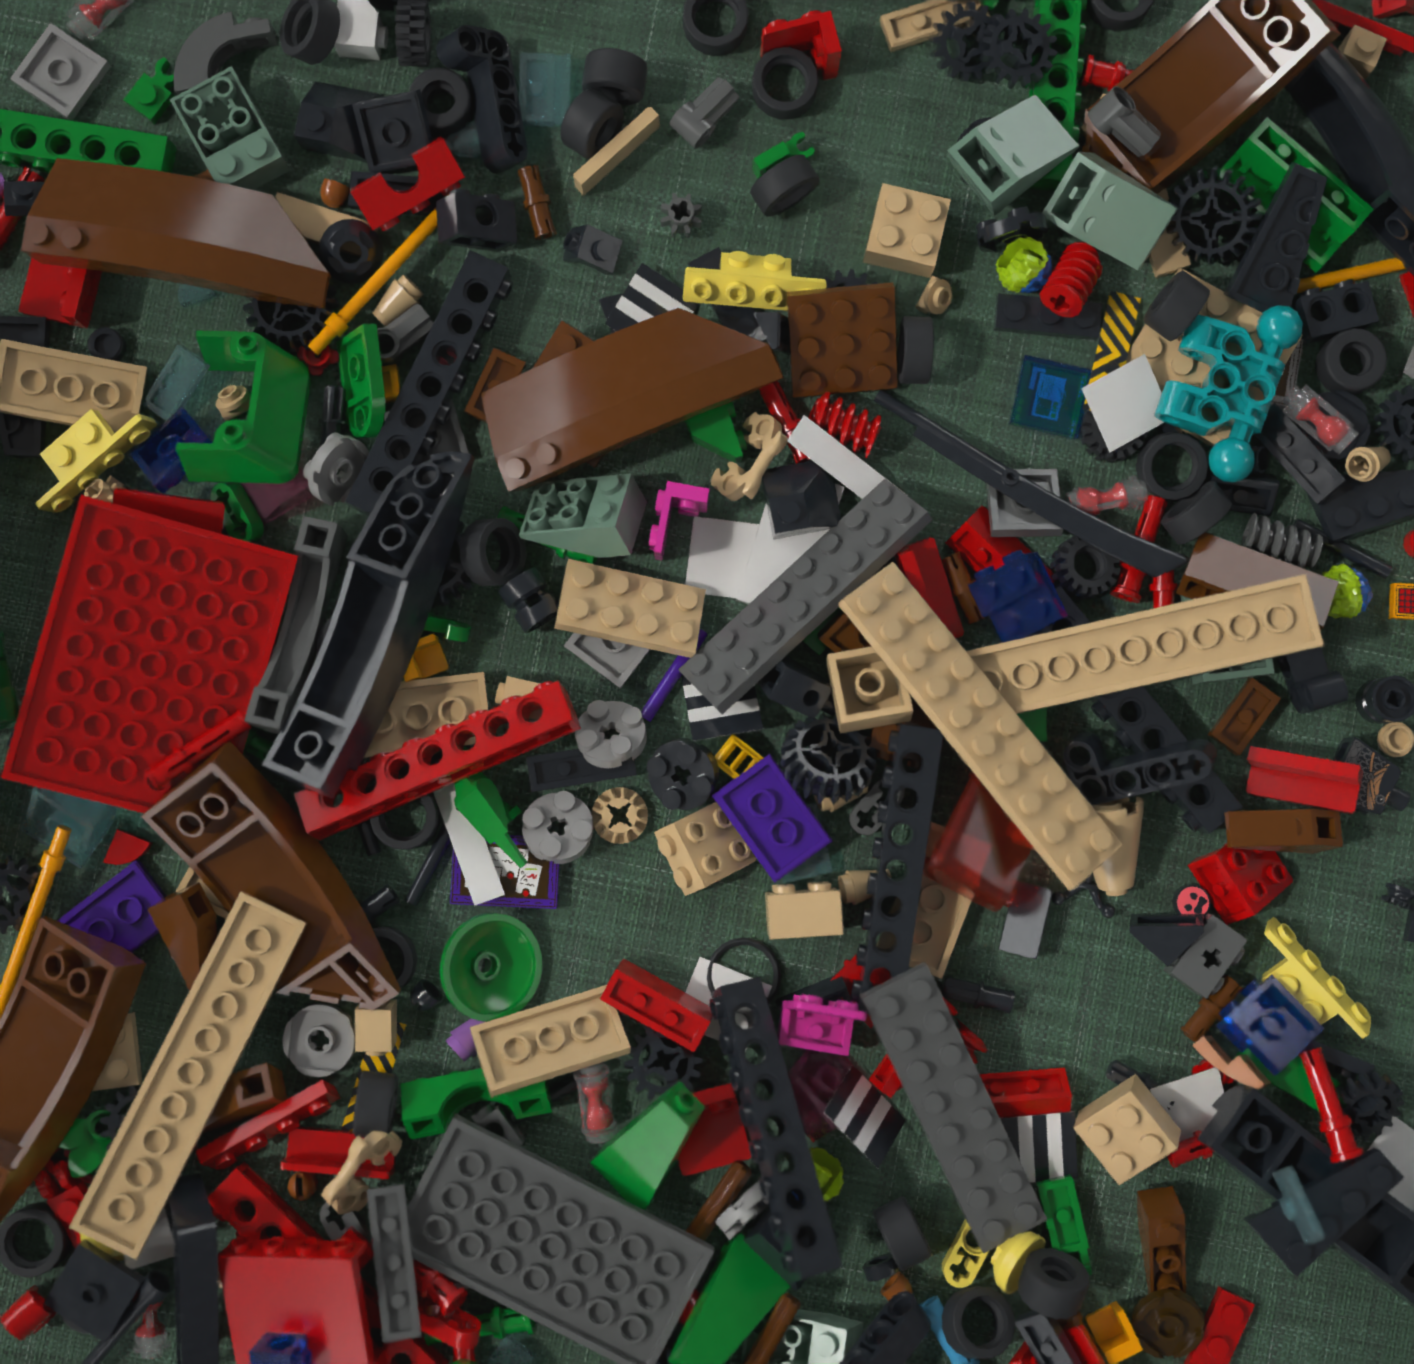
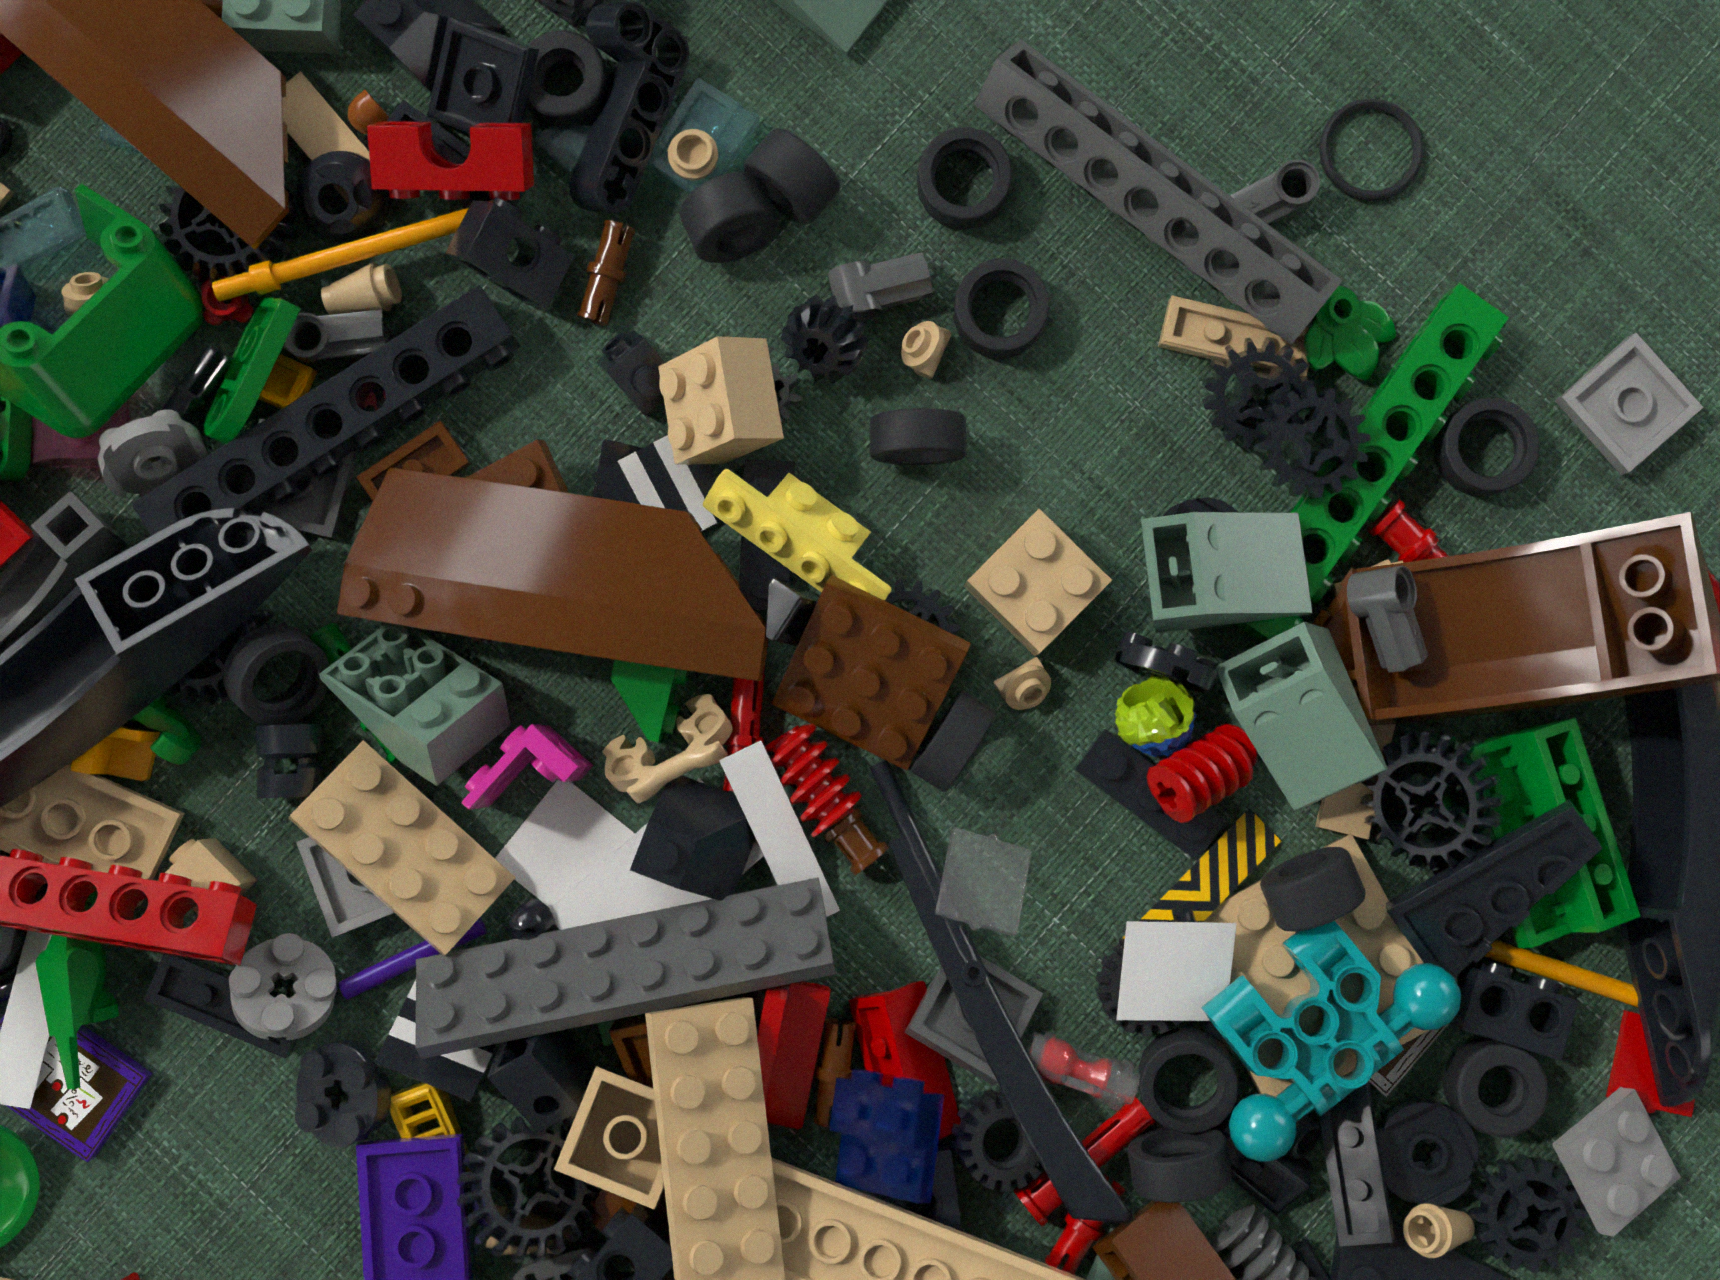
camera: 35 degrees right, 0 degrees up
(547, 99) = (693, 154): none -> tan plate
(561, 808) = (129, 1040): light grey plate -> none
(616, 150) = (741, 267): tan tile -> none
(636, 813) = (248, 1070): tan gear -> none
(656, 232) = (720, 401): none -> tan brick
(693, 149) = (824, 338): none -> black gear
(703, 848) = (307, 1202): tan bracket -> none
(728, 604) = (531, 920): none -> black hinge
(753, 134) = (924, 347): none -> tan plate
(779, 153) = (940, 396): green plate -> none
(812, 32) = (1065, 263): red bracket -> none
(893, 446) = (856, 841): none -> reddish brown bush
(982, 423) = (983, 882): none -> clear piece
(1049, 397) = (1091, 896): tile -> none
(1332, 431) = (1414, 1164): clear piece -> none

